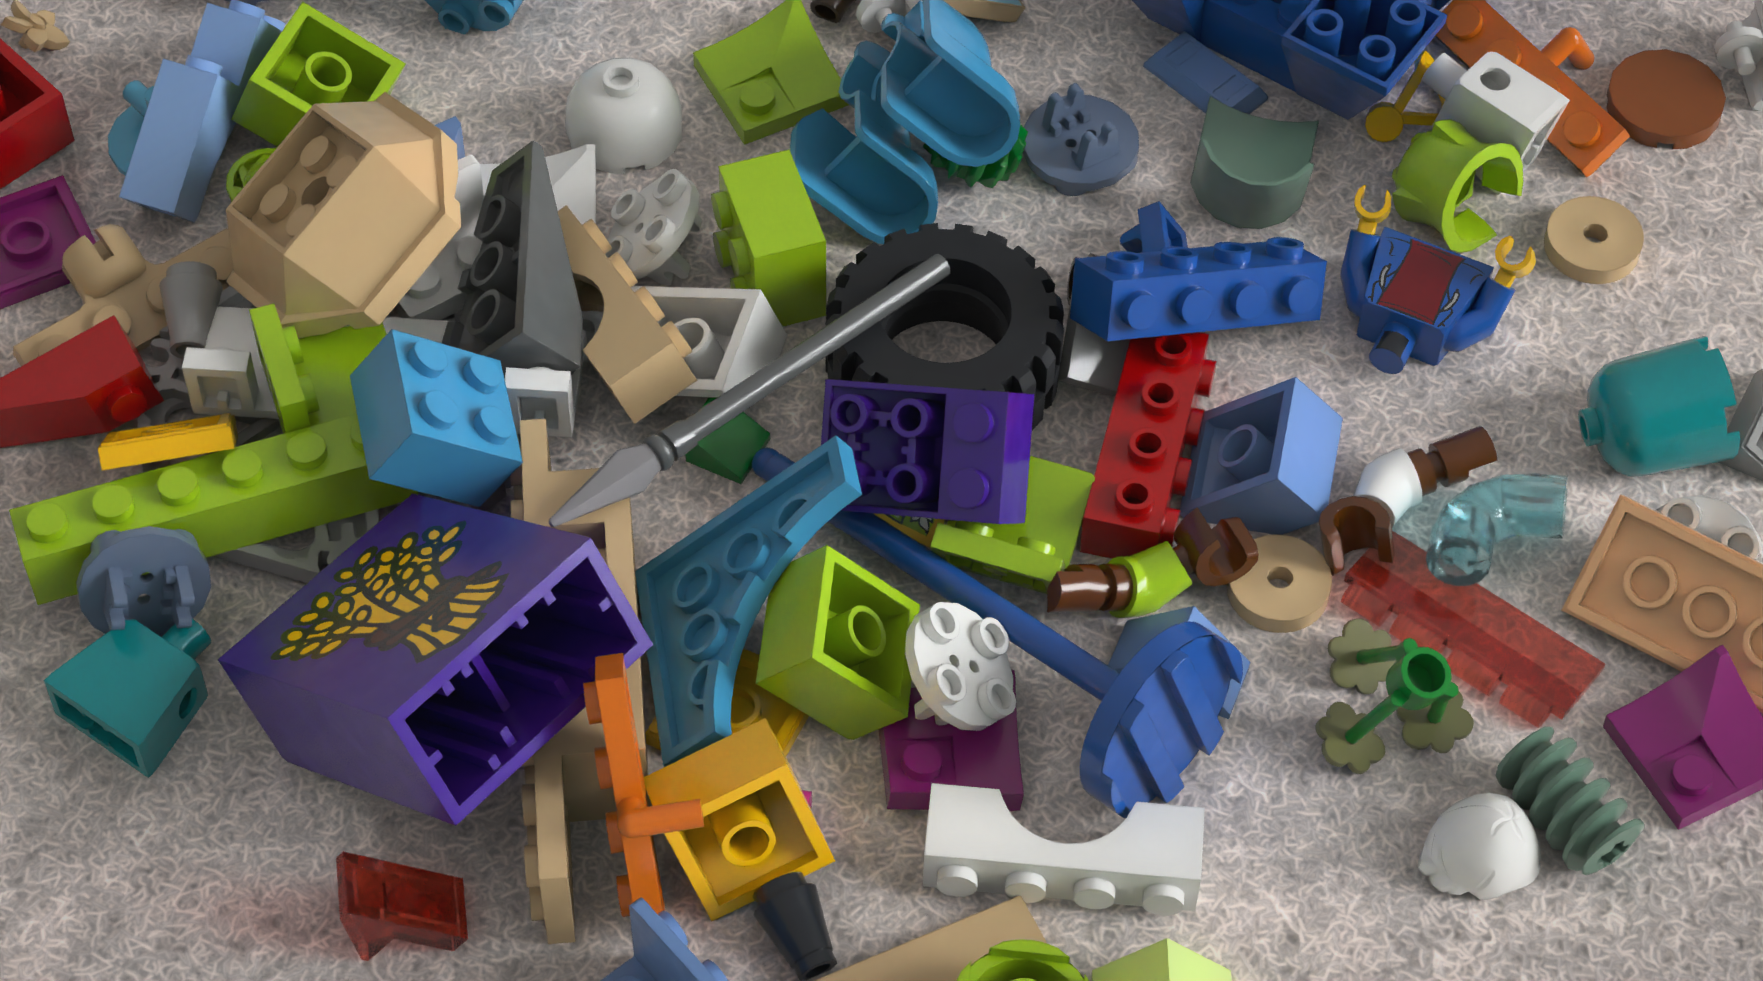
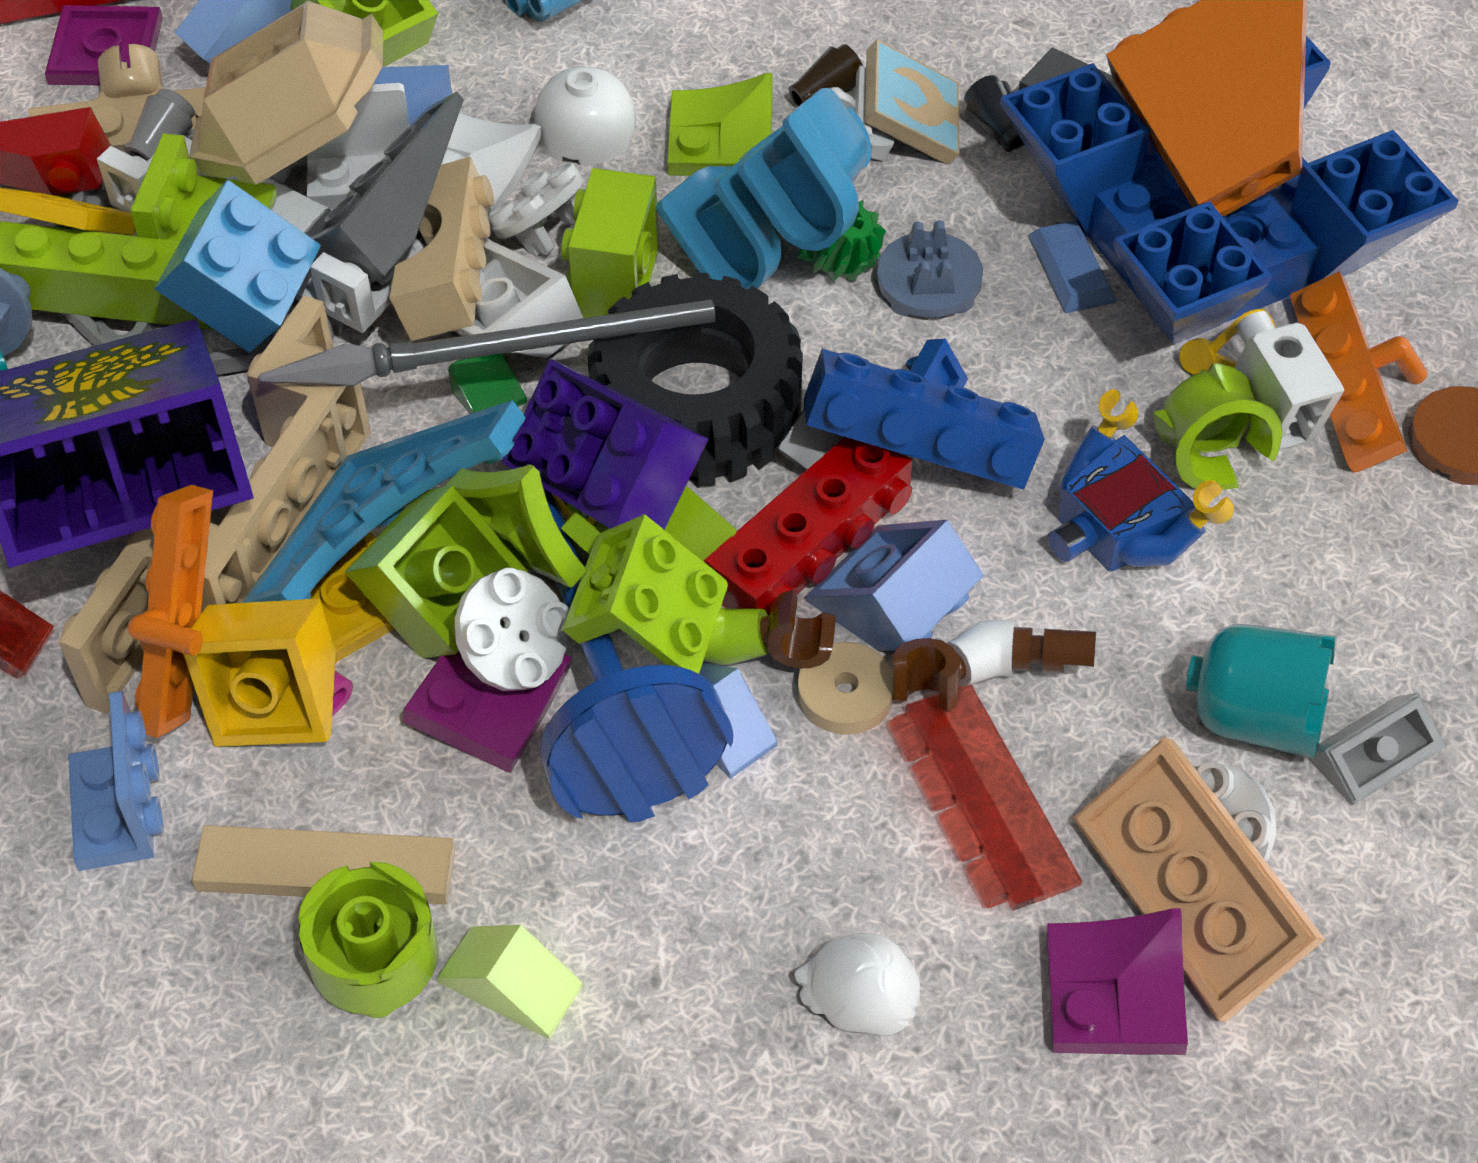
camera: 30 degrees right, 0 degrees up
(796, 924) = (265, 776): black cone -> none
(914, 551) = (521, 517): none -> lime plate
(1066, 565) = (649, 590): none -> lime bracket
(1143, 862) = (570, 857): white arch -> none
(1252, 166) = (1058, 347): sand green piece -> none
(1417, 689) = (871, 813): olive plant -> none
(1490, 513) = (1059, 709): clear light blue cylinder -> none
(1565, 803) = (956, 978): sand green piece -> none
(1591, 261) = (1314, 545): tan piece -> none

